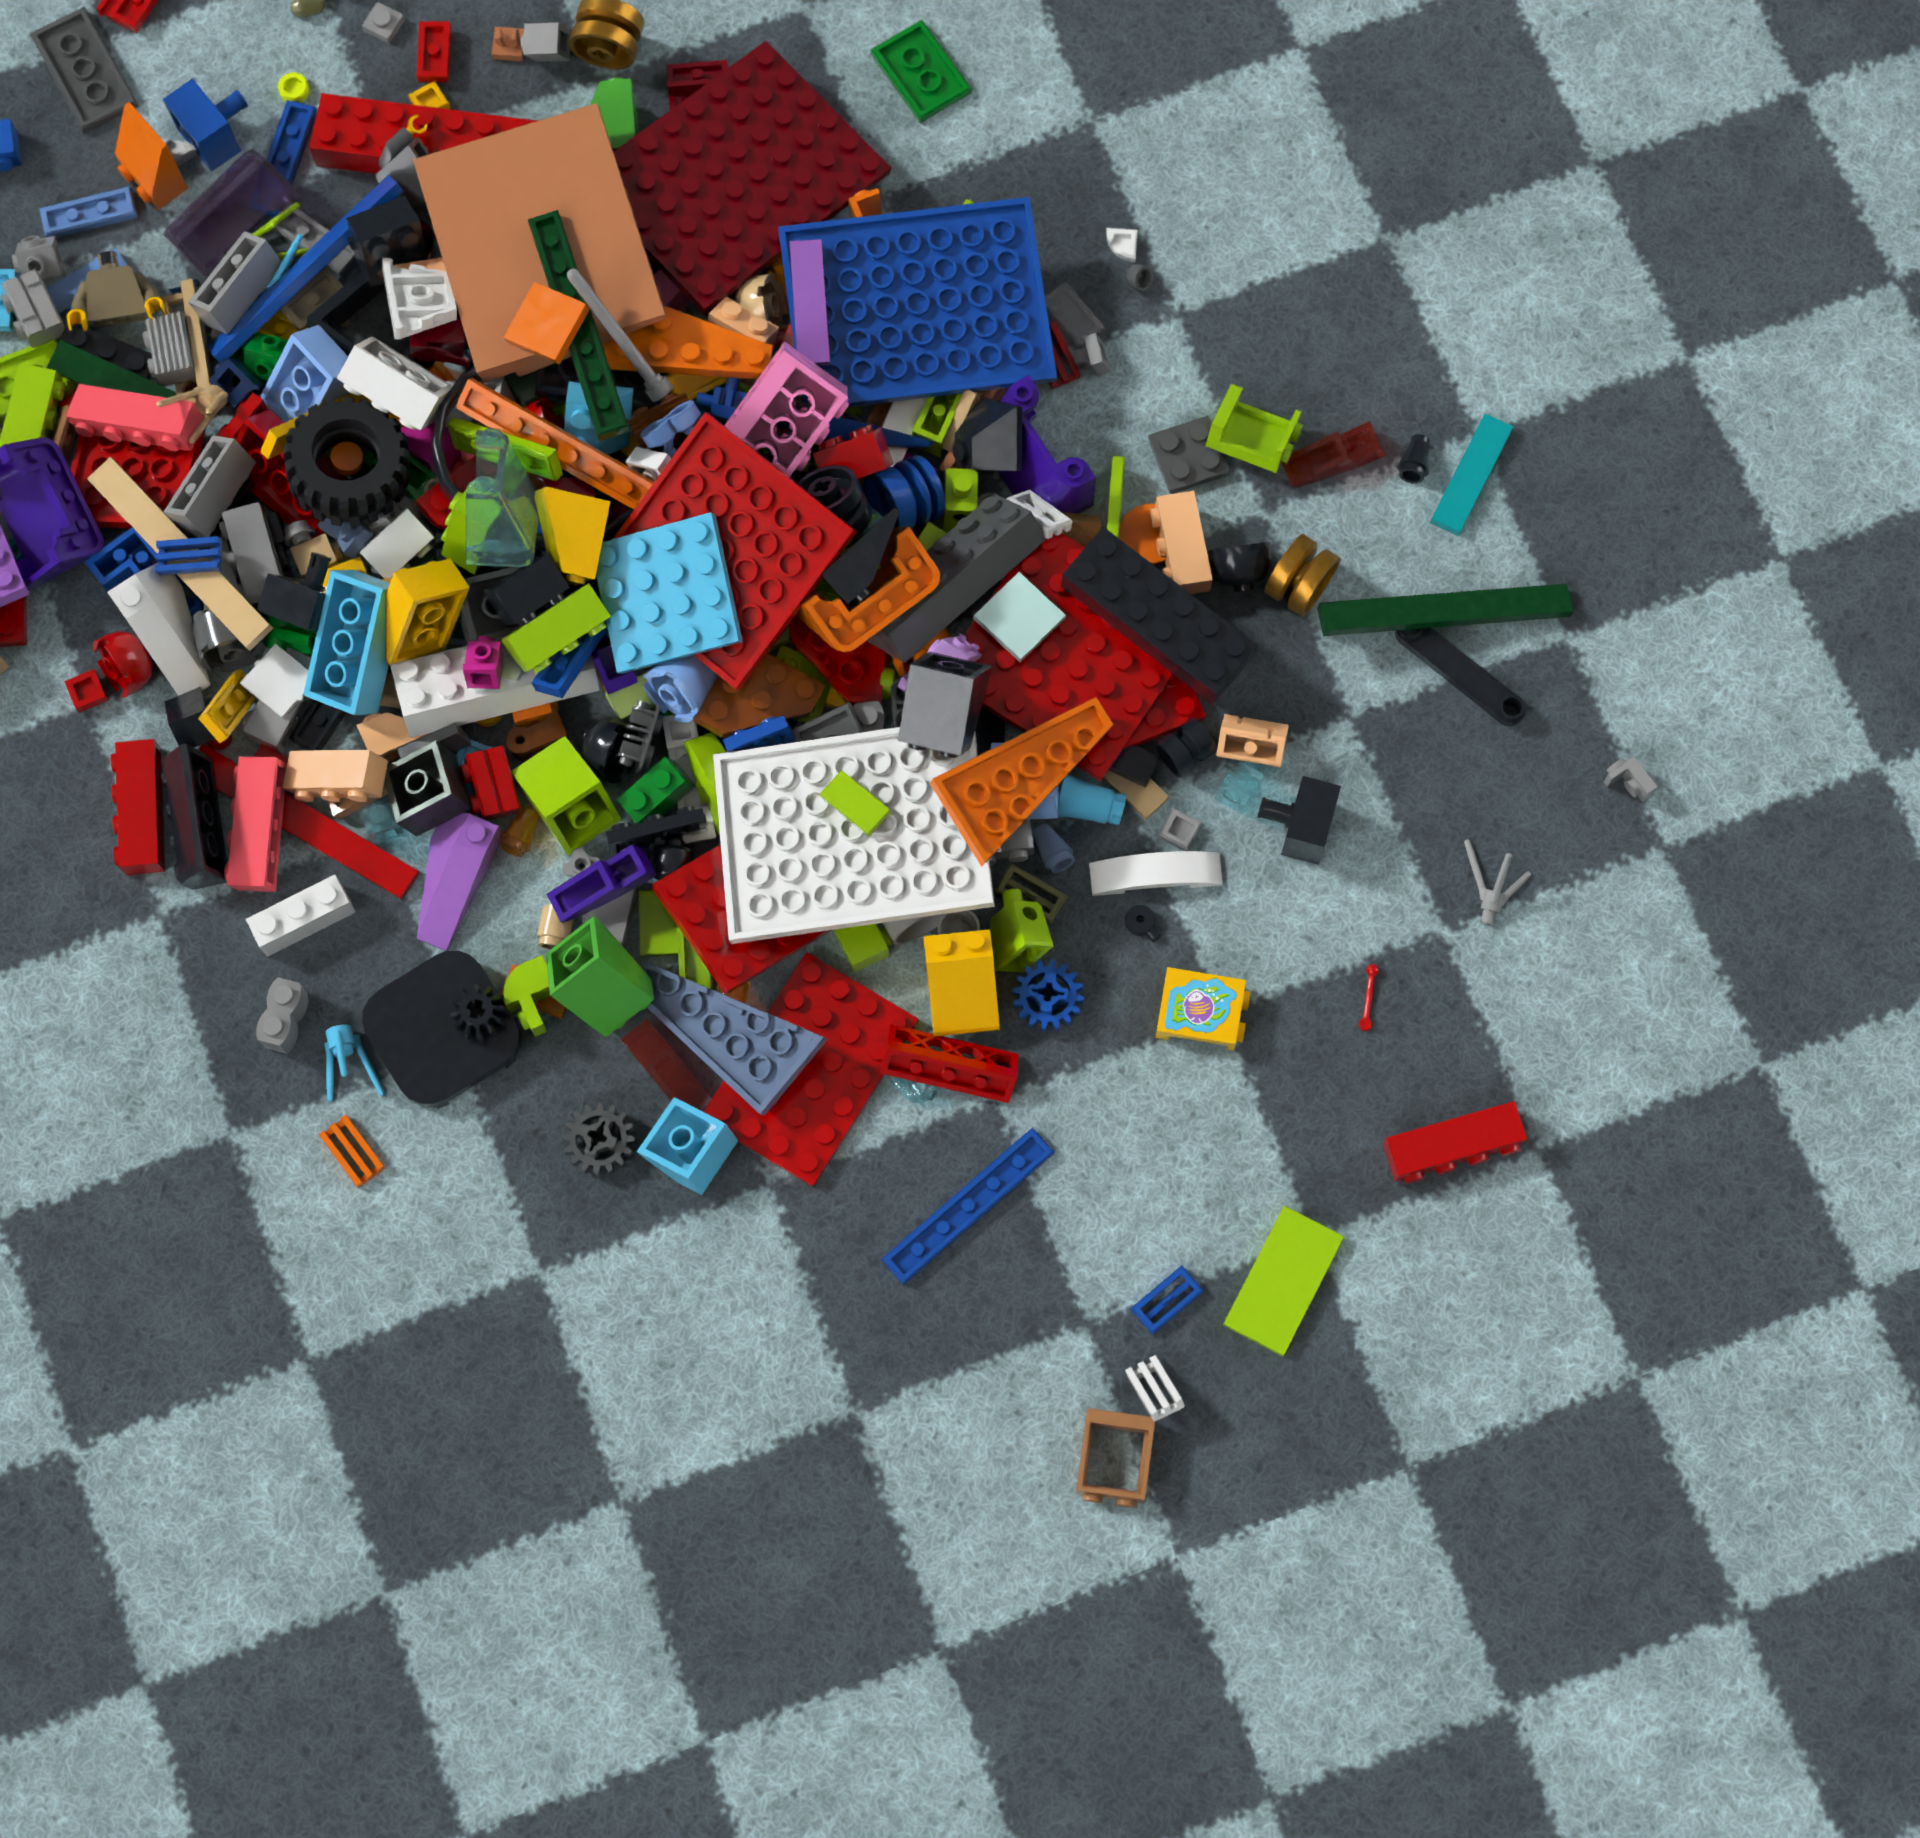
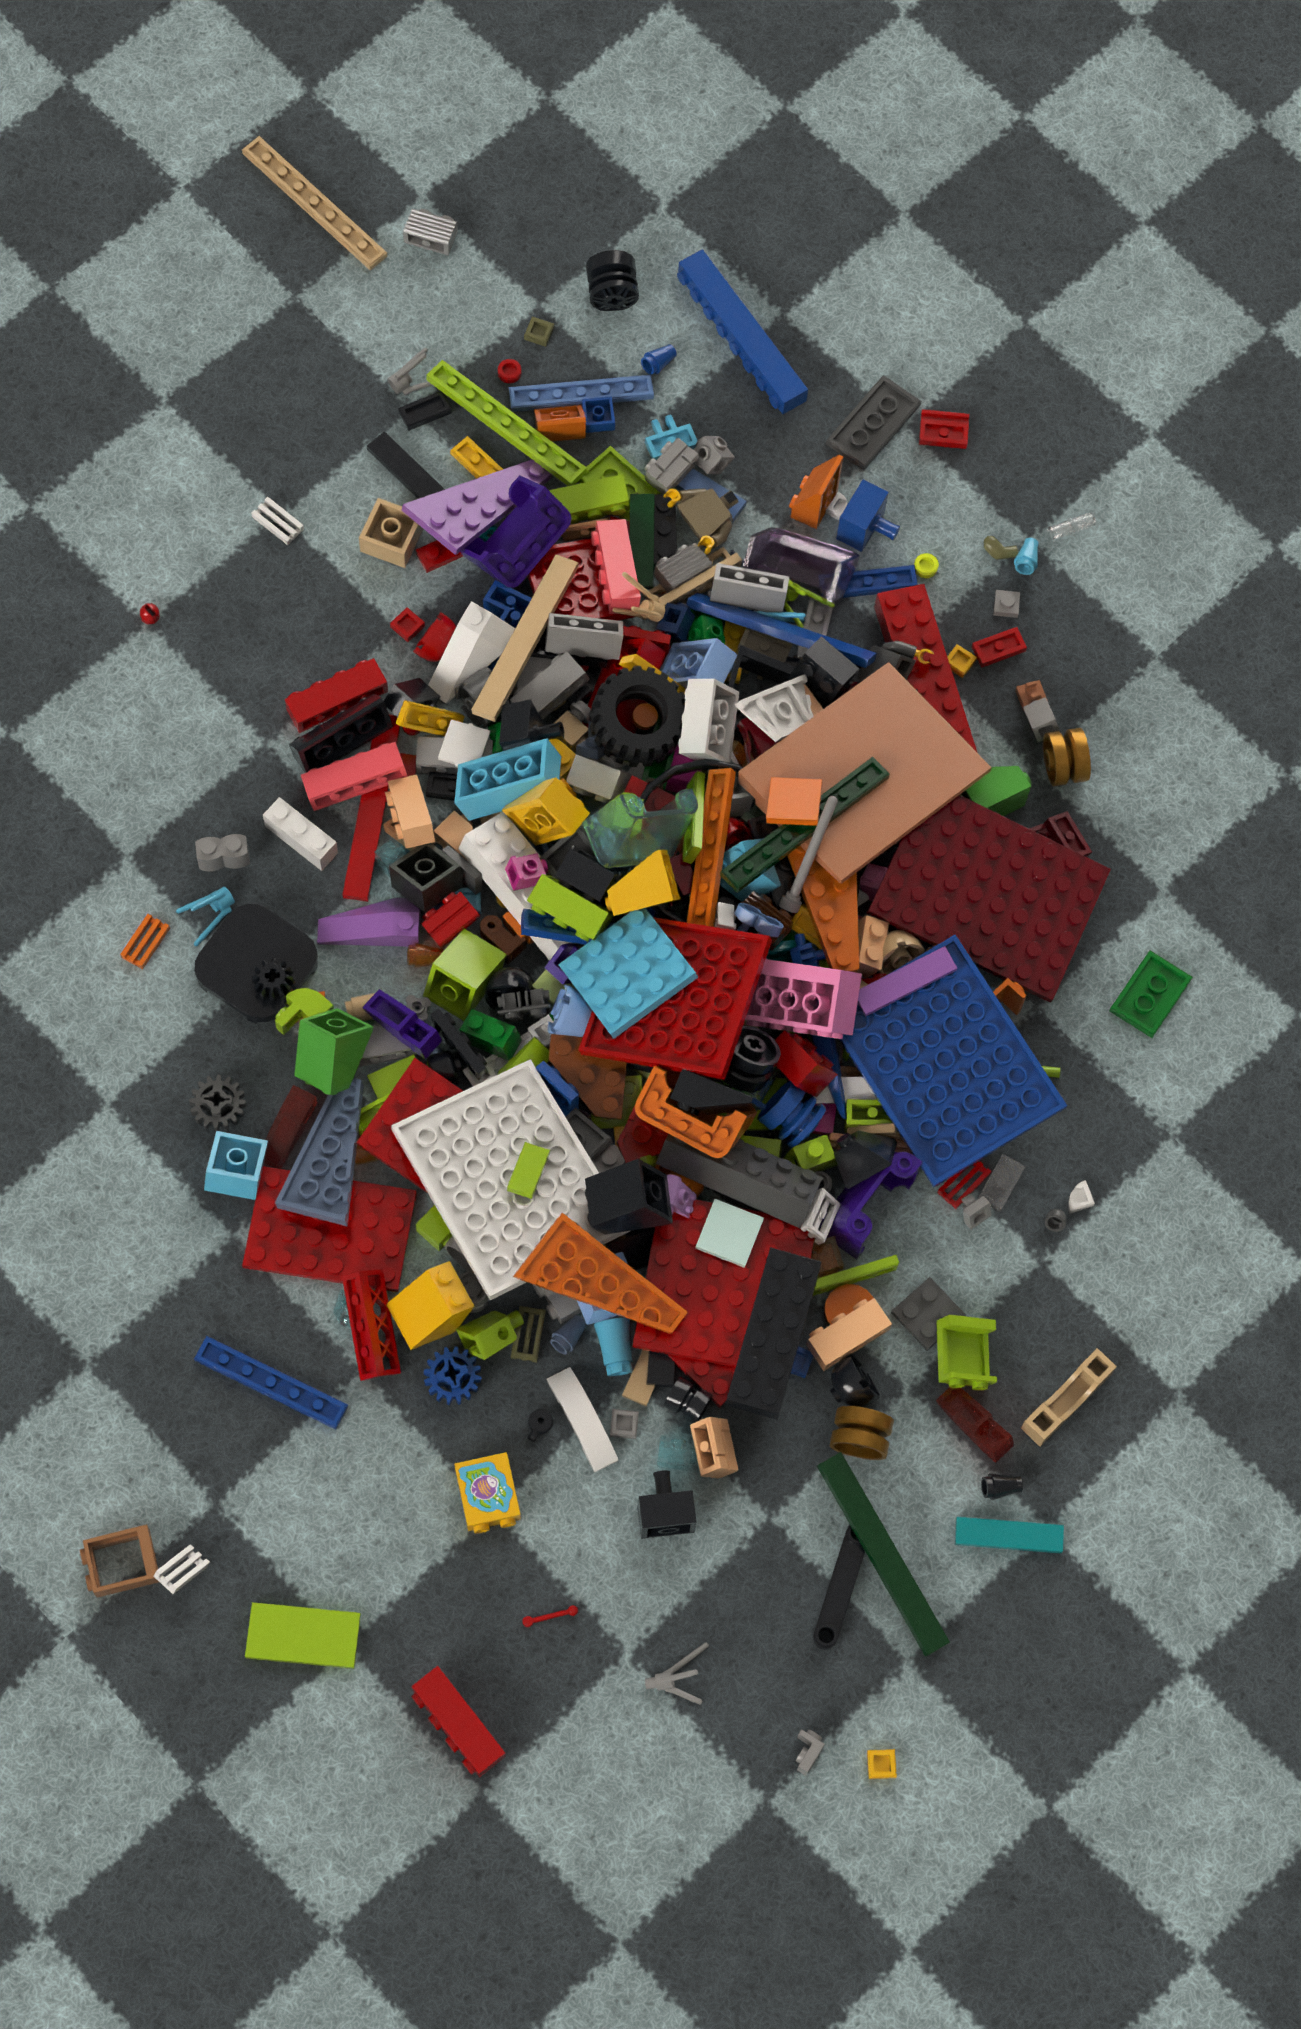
camera: 60 degrees right, 5 degrees down
(89, 212) = (765, 472): medium blue tile -> none
(184, 544) = (515, 627): blue tile -> none
(1145, 1318) = (275, 1565): blue tile -> none
(1336, 324) = (1068, 1397): none -> tan arch
(1671, 710) = (881, 1764): none -> yellow tile

